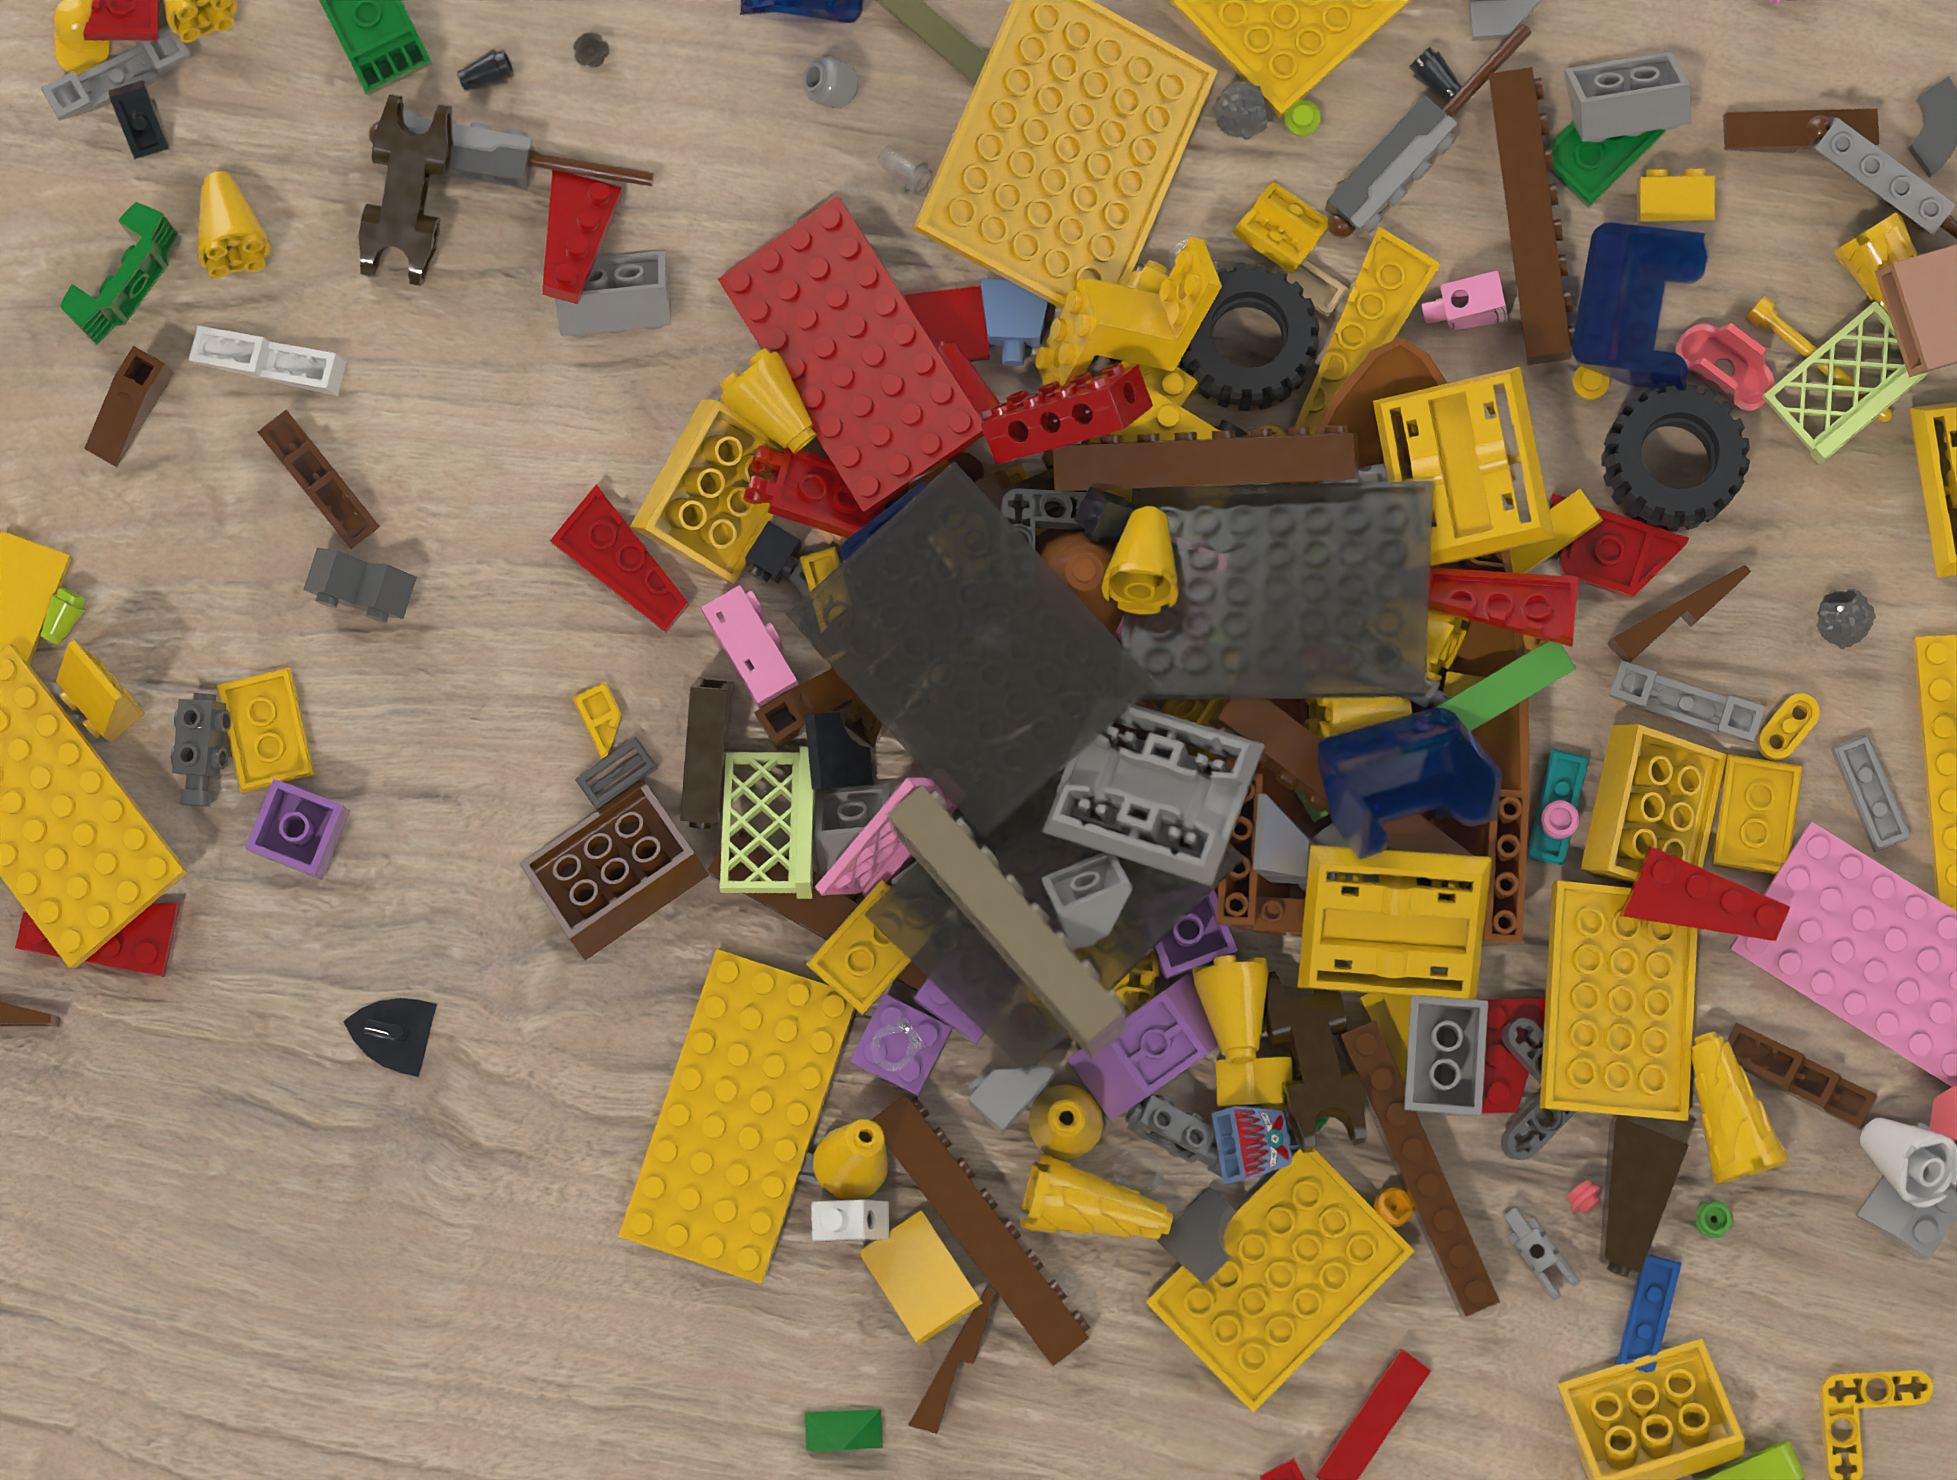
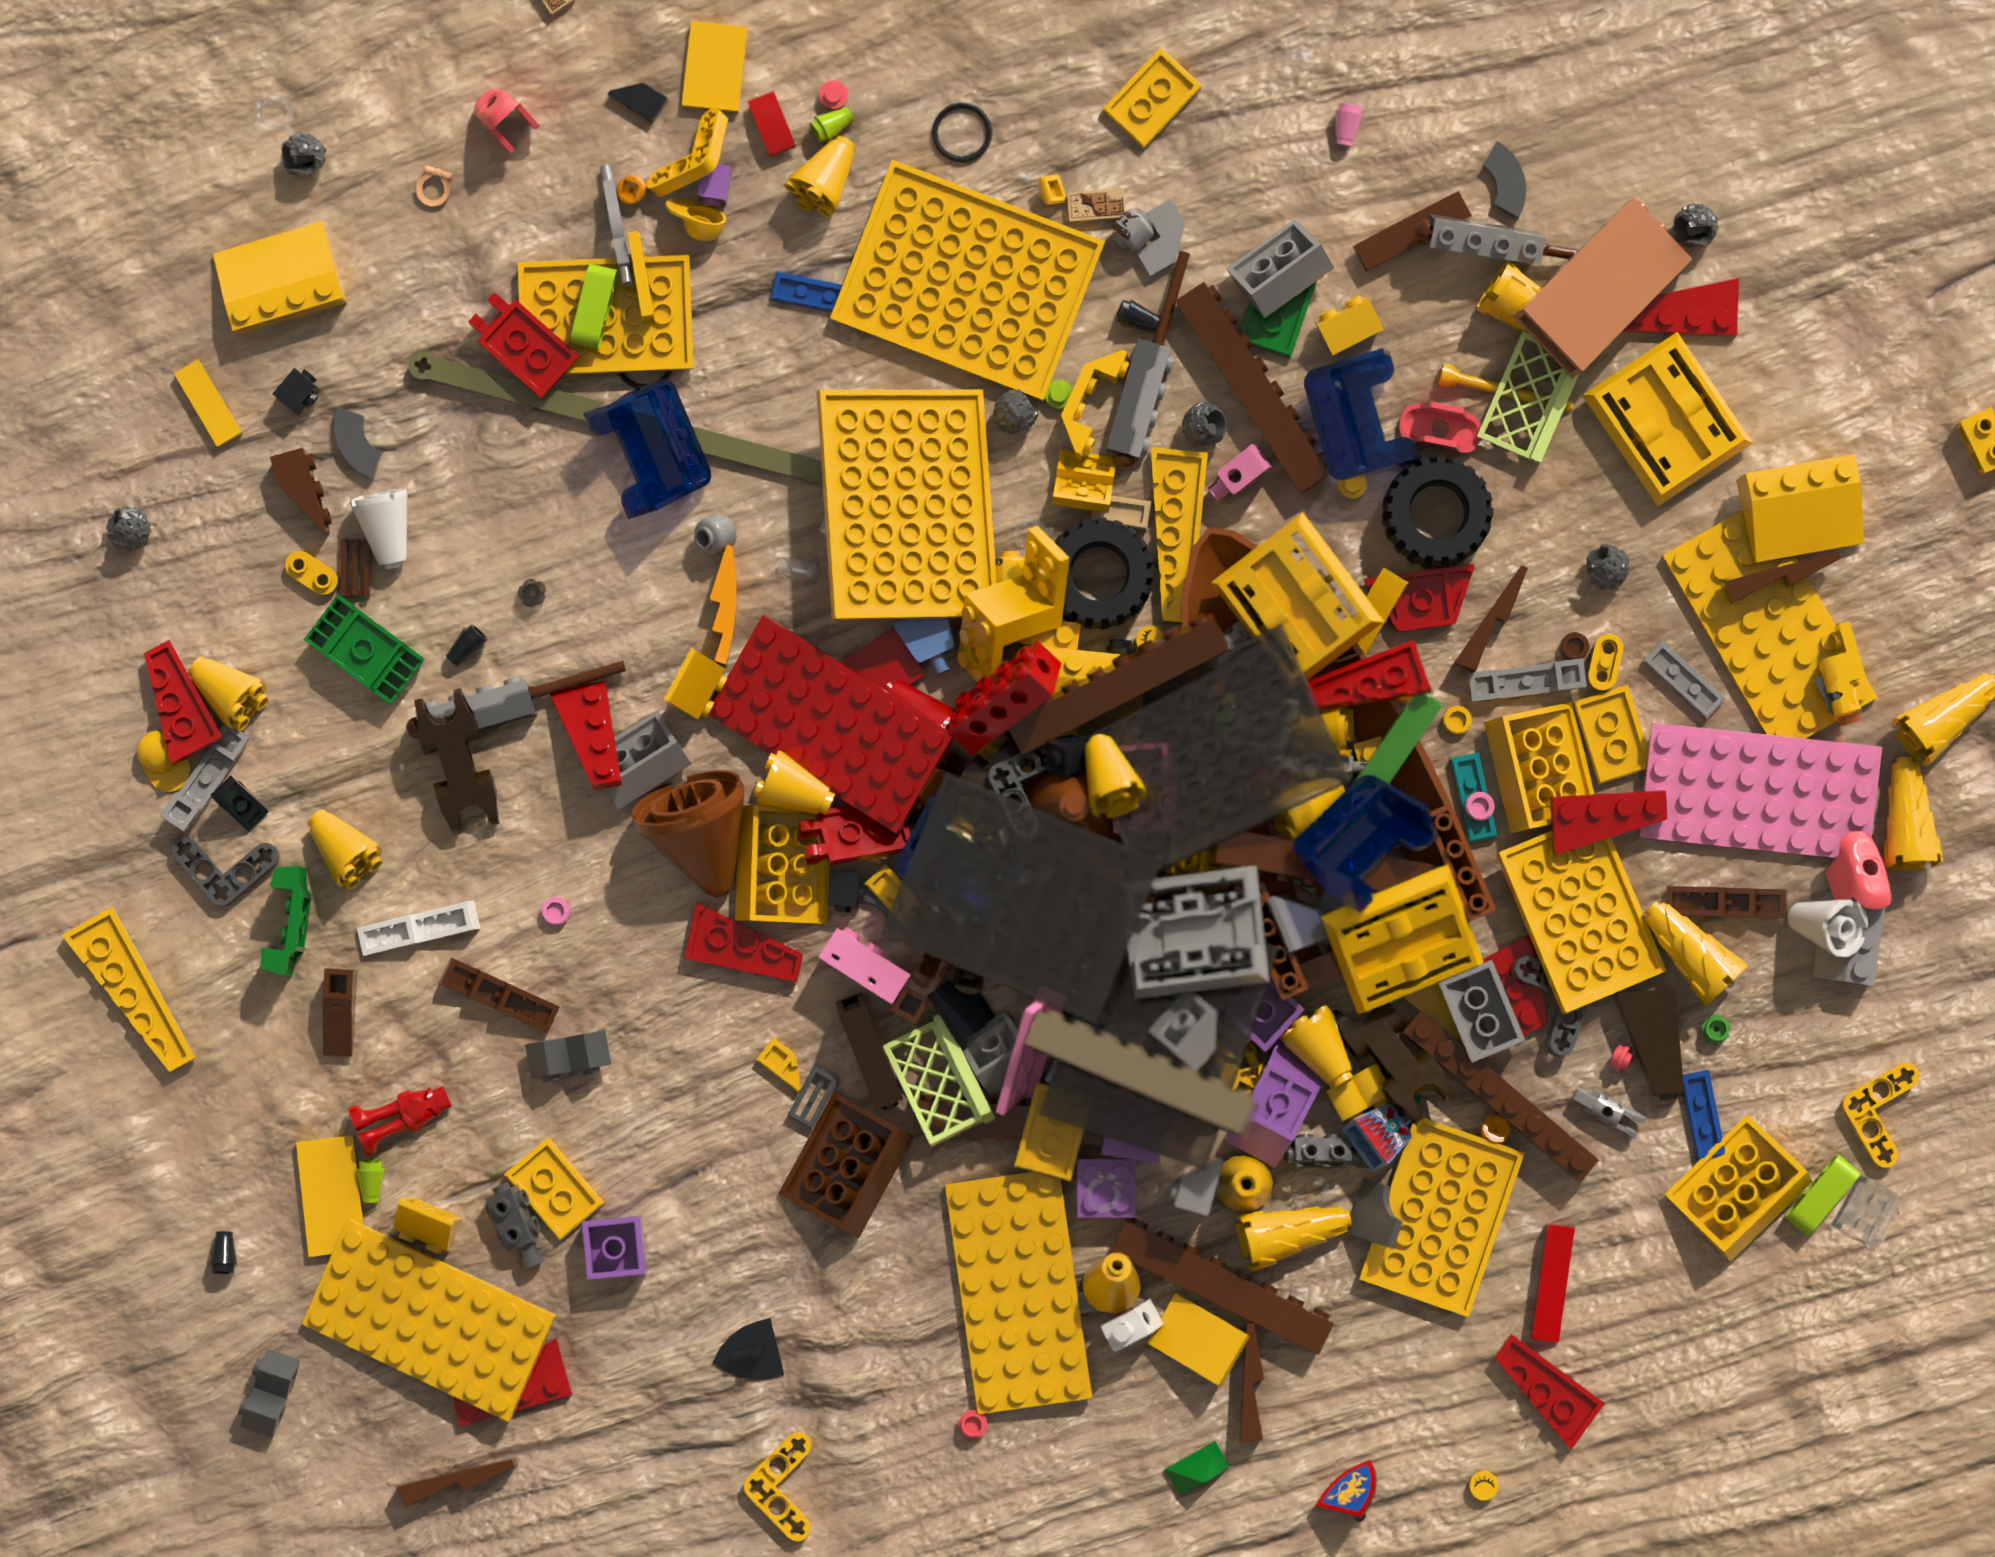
camera: 25 degrees left, 5 degrees up
(82, 200) = (229, 878): none -> dark grey beam
(152, 562) = (414, 1110): none -> red piece
(340, 1192) = (772, 1479): none -> yellow beam
(432, 417) = (555, 911): none -> bright pink tile
(606, 1245) = (972, 1424): none -> coral plate
(638, 398) = (696, 826): none -> dark orange cone
(719, 234) = (696, 685): none -> yellow slope
(808, 156) = (726, 594): none -> light orange slope
(1371, 113) = (1107, 368): none -> yellow slope
(1453, 229) = (1204, 424): none -> dark grey piece
(1581, 709) = (1457, 720): none -> yellow tile
(1761, 690) = (1574, 646): none -> reddish brown tile

